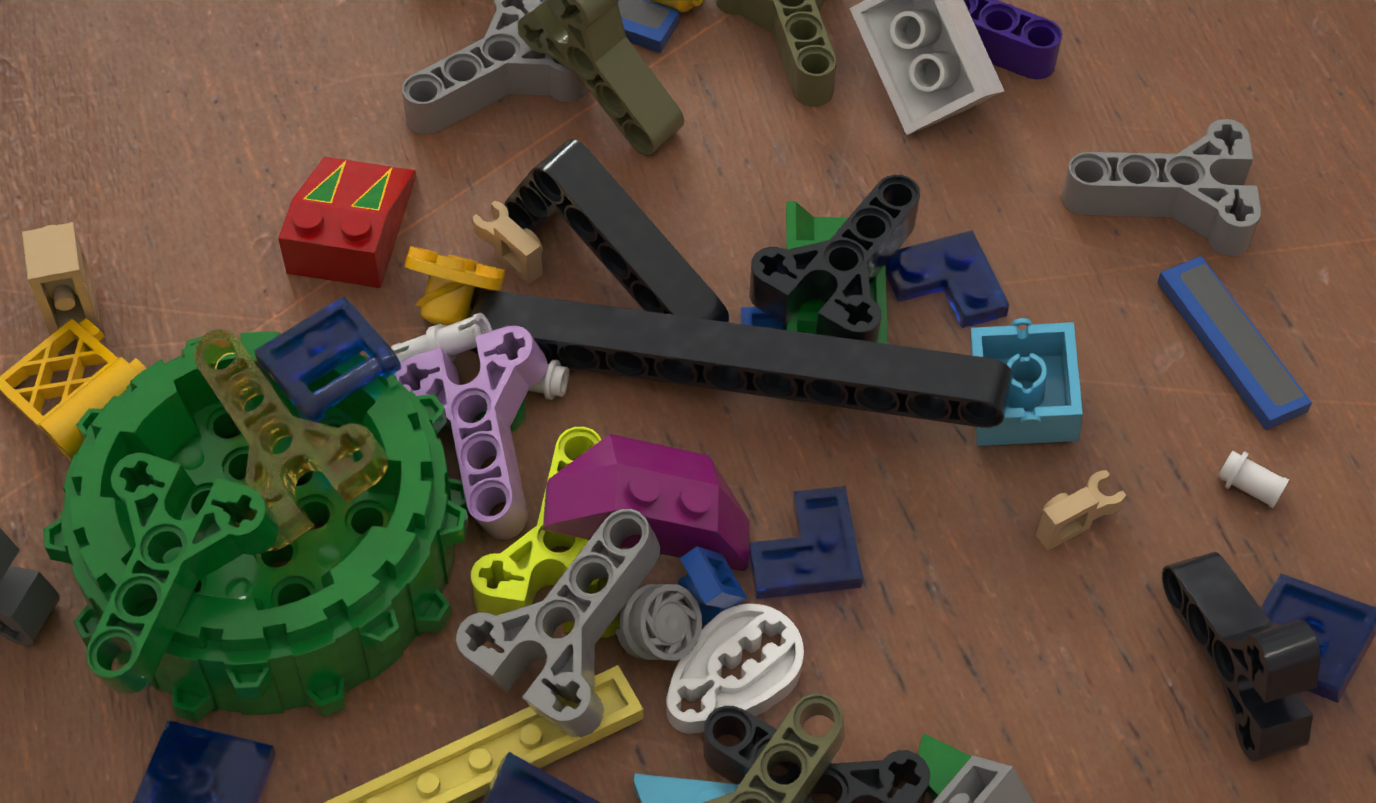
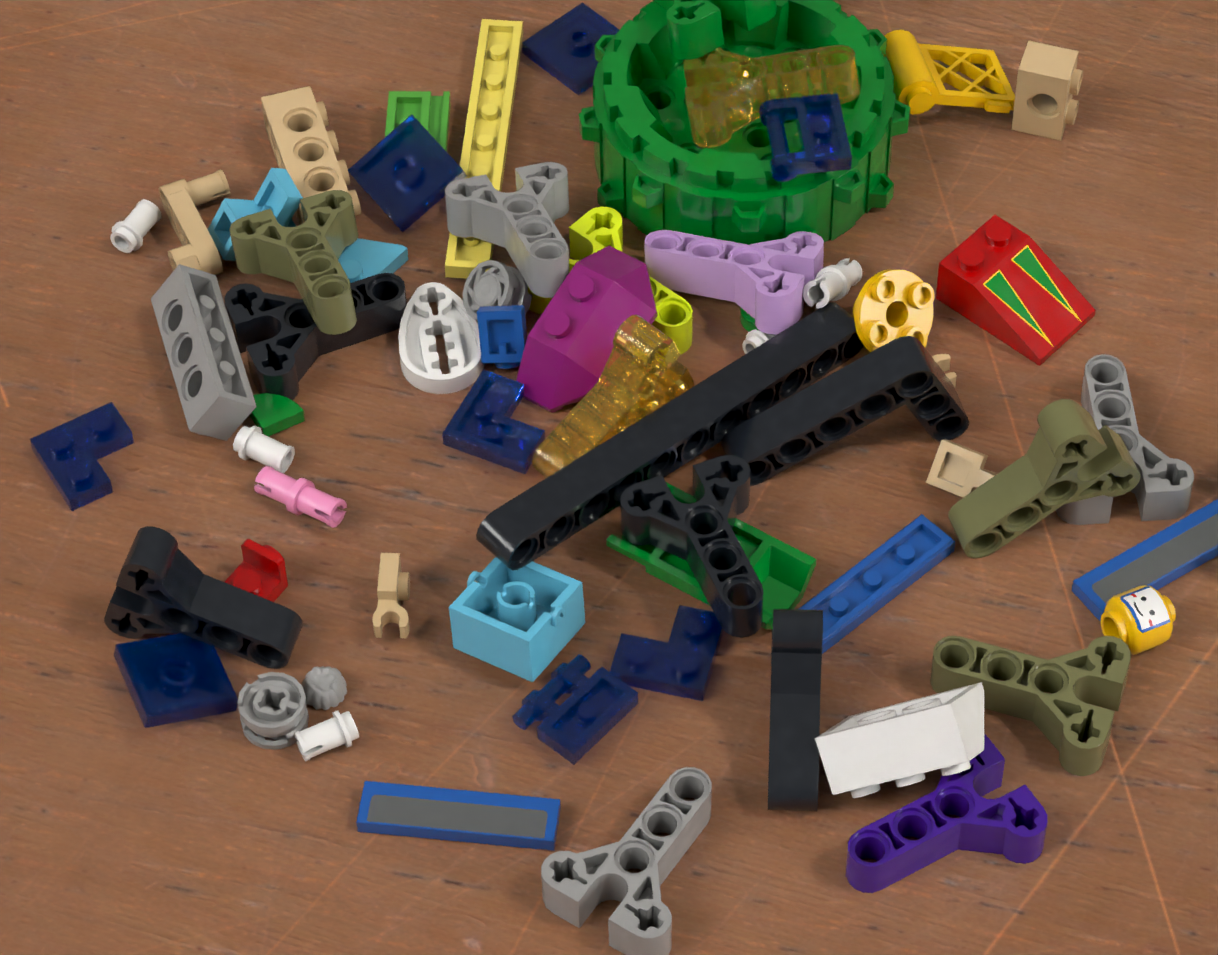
camera: 125 degrees right, 5 degrees down
(599, 143) = (958, 469): none -> tan plate
(709, 416) = (634, 383): none -> clear yellow beam
(760, 177) = (879, 578): none -> blue tile
(948, 138) = (795, 709): none -> black beam
(997, 735) = (259, 447): none -> white pin
(1027, 667) = (300, 496): none -> bright pink pin
(1067, 298) = (585, 716): none -> clear blue plate
(1152, 647) = (260, 571): none -> red bracket
(1203, 520) = (324, 687): none -> light grey piece
(1270, 532) = (273, 709): none -> light grey wheel

